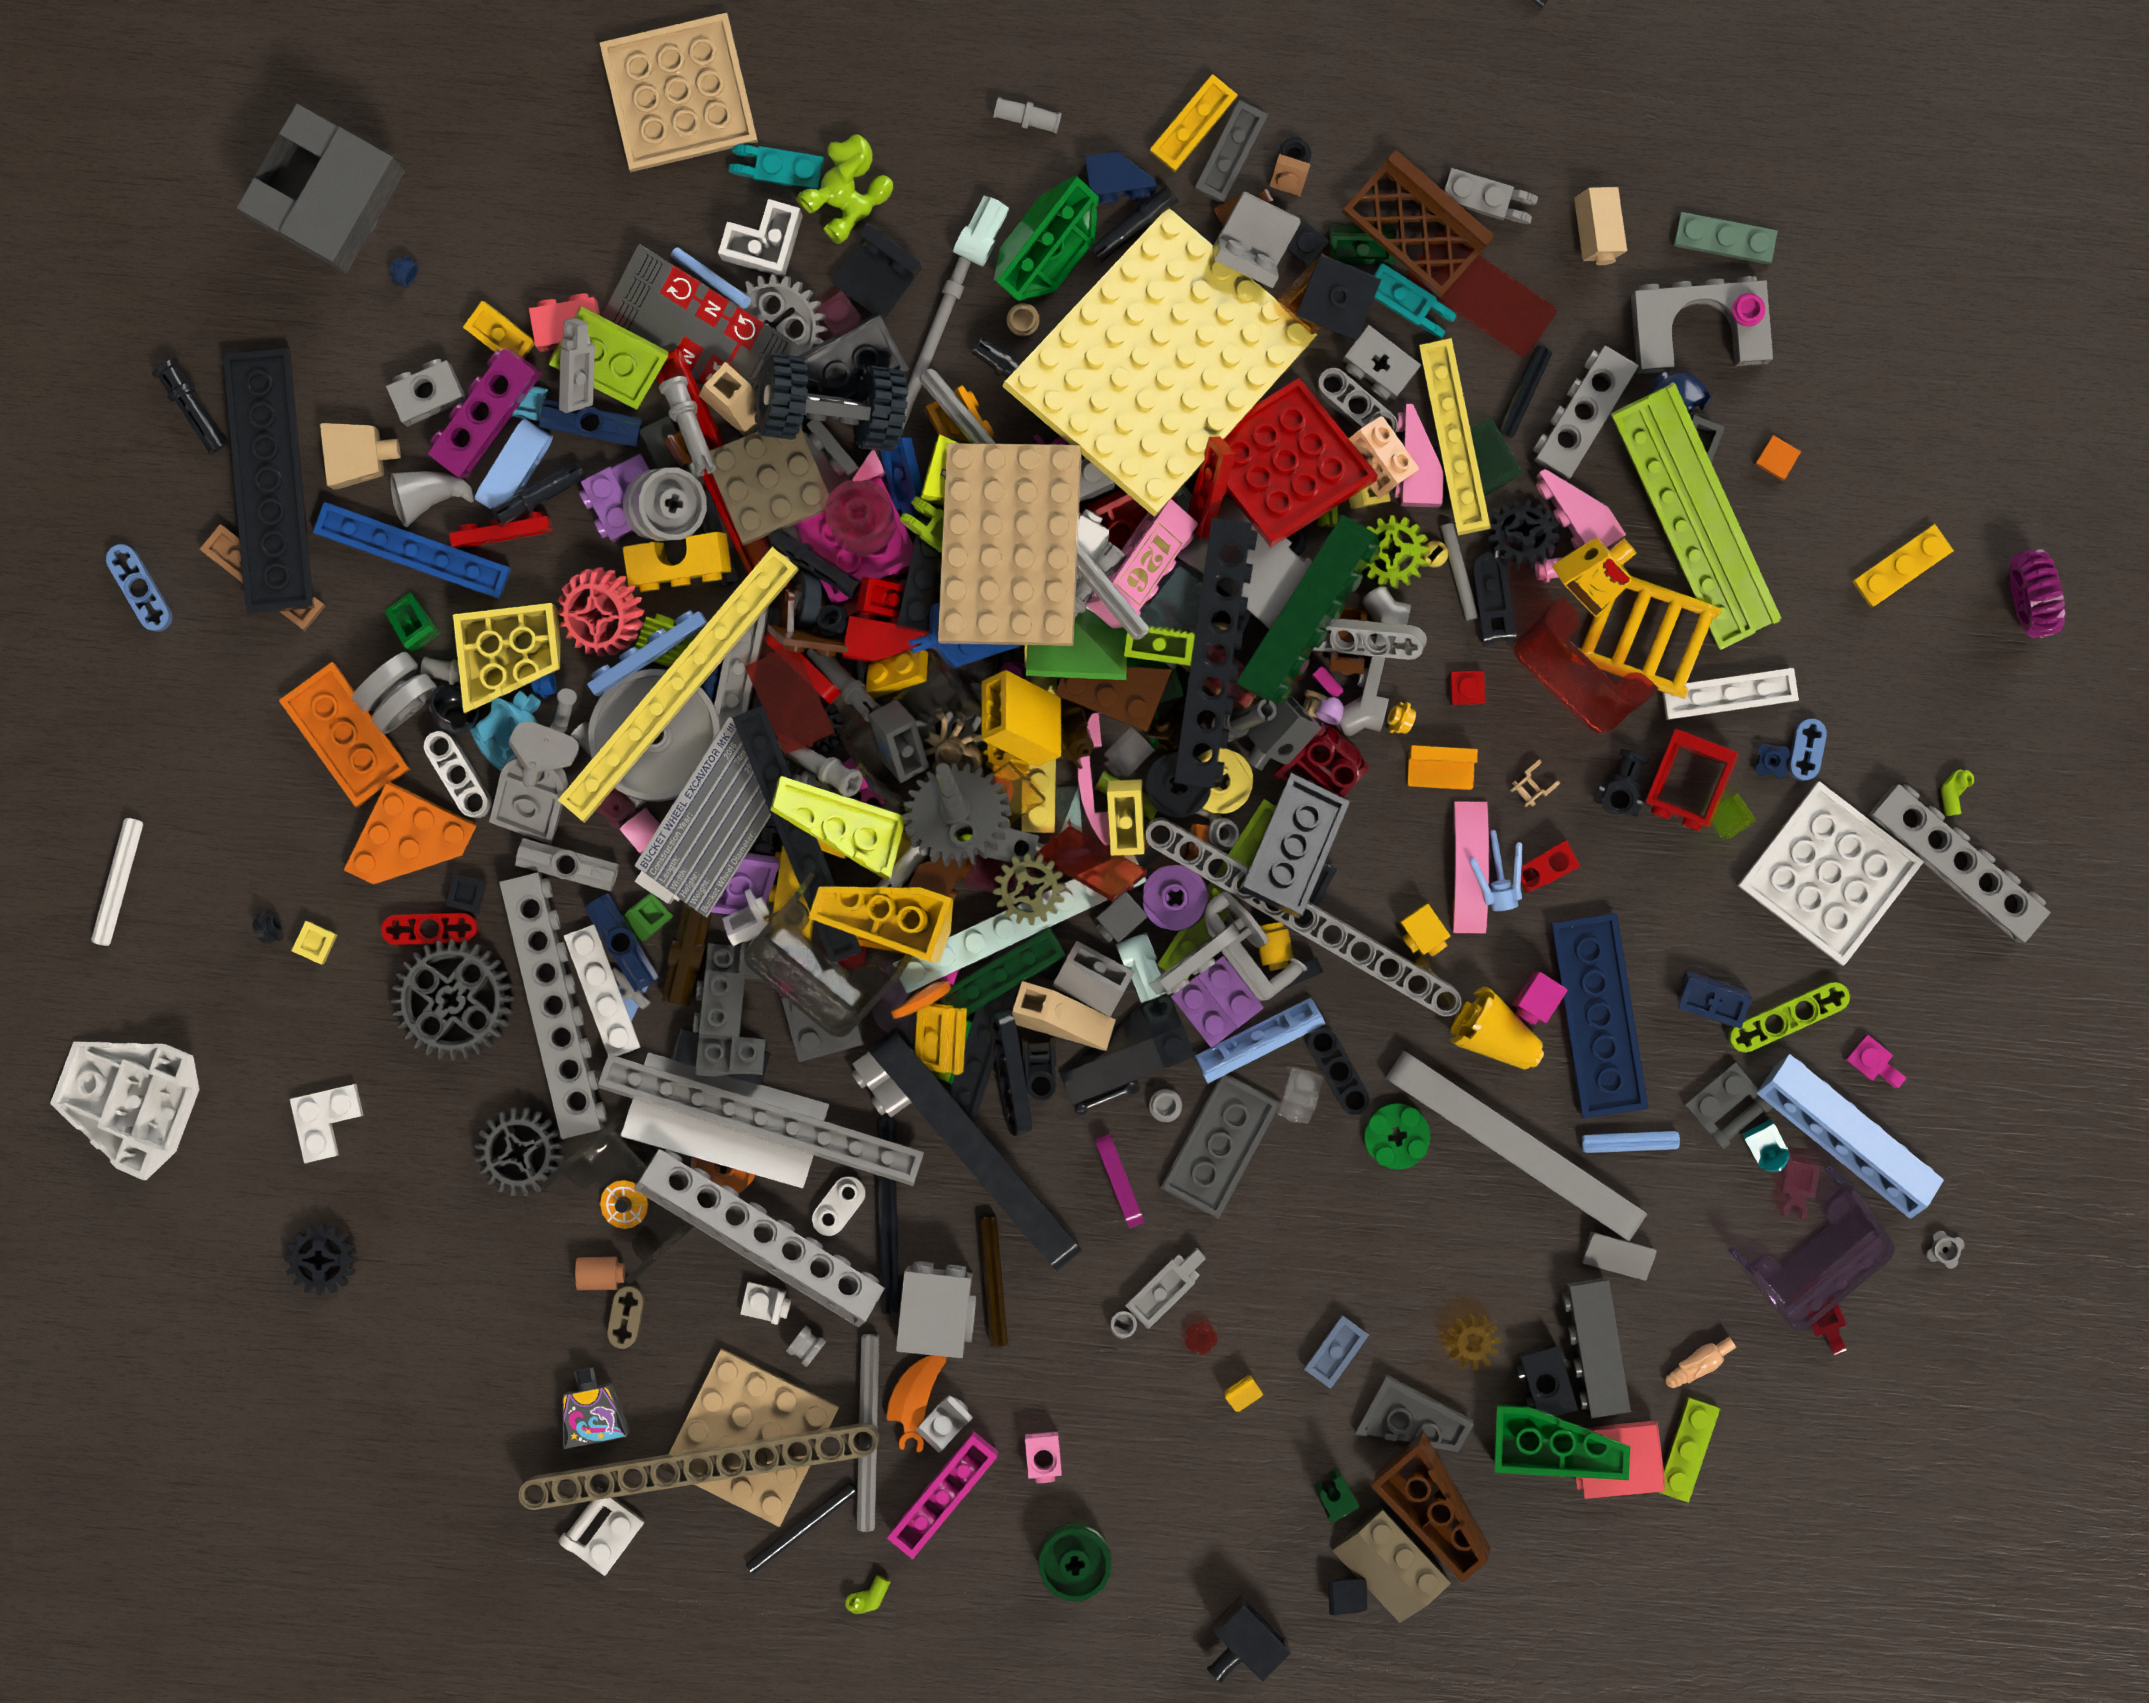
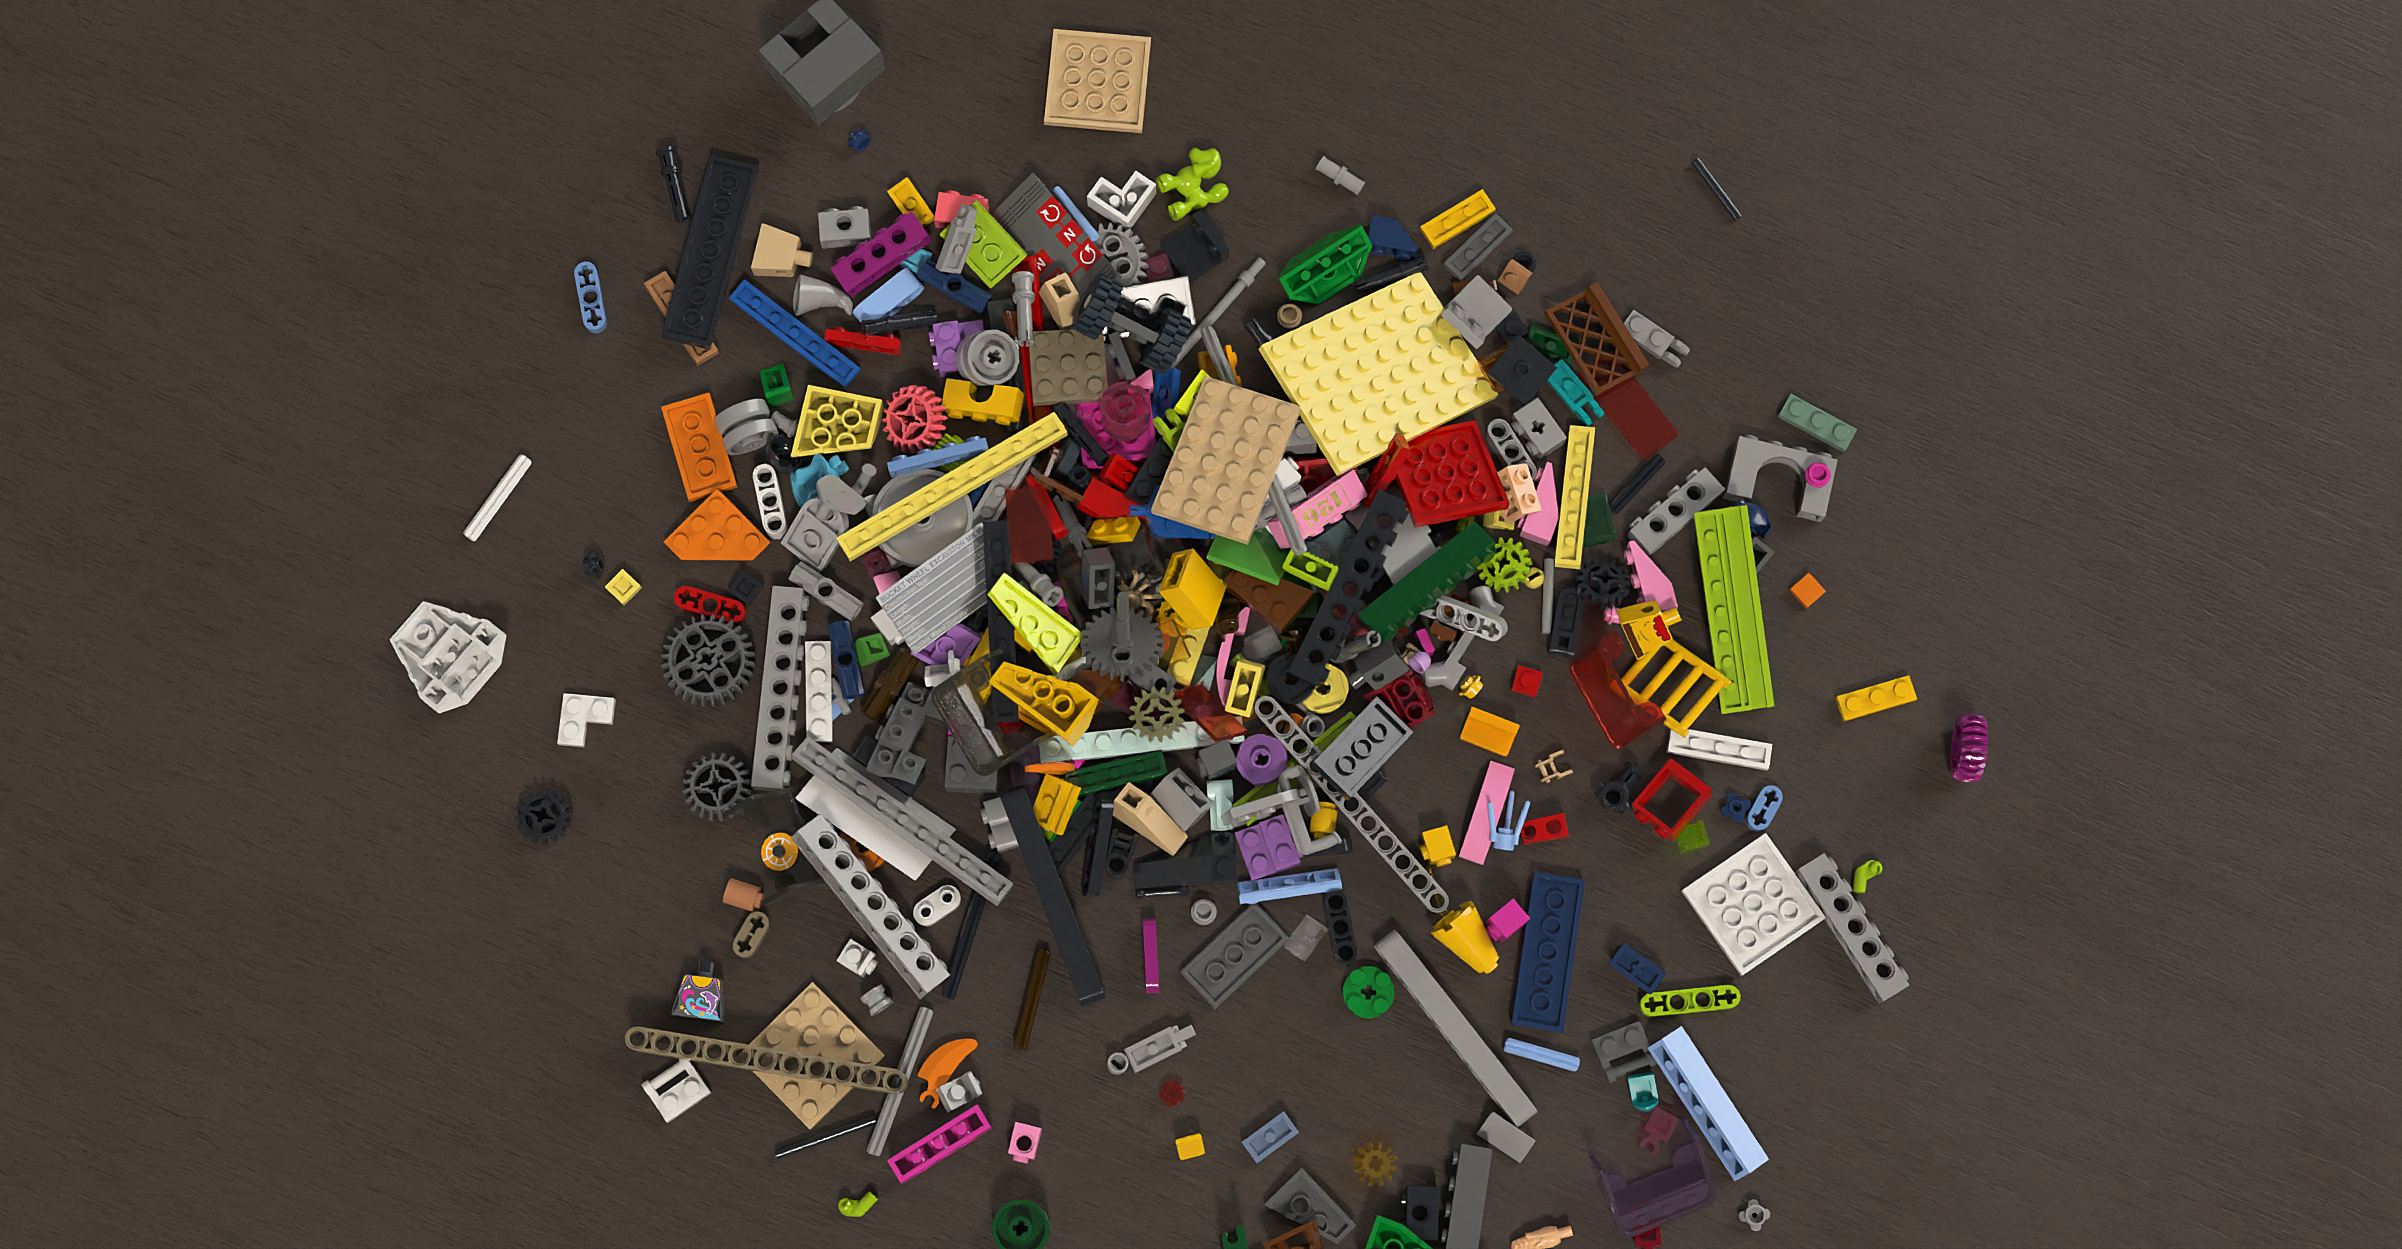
camera: 15 degrees right, 10 degrees down
(545, 685) = (855, 458): blue plate -> none
(780, 167) = (1150, 154): teal hinge -> none
(936, 1310) = (982, 1003): light grey brick -> none
(978, 238) = (1276, 249): light aqua piece -> none
(1600, 225) = (1729, 382): tan brick -> none
(1873, 1060) = (1741, 1053): dark pink plate -> none

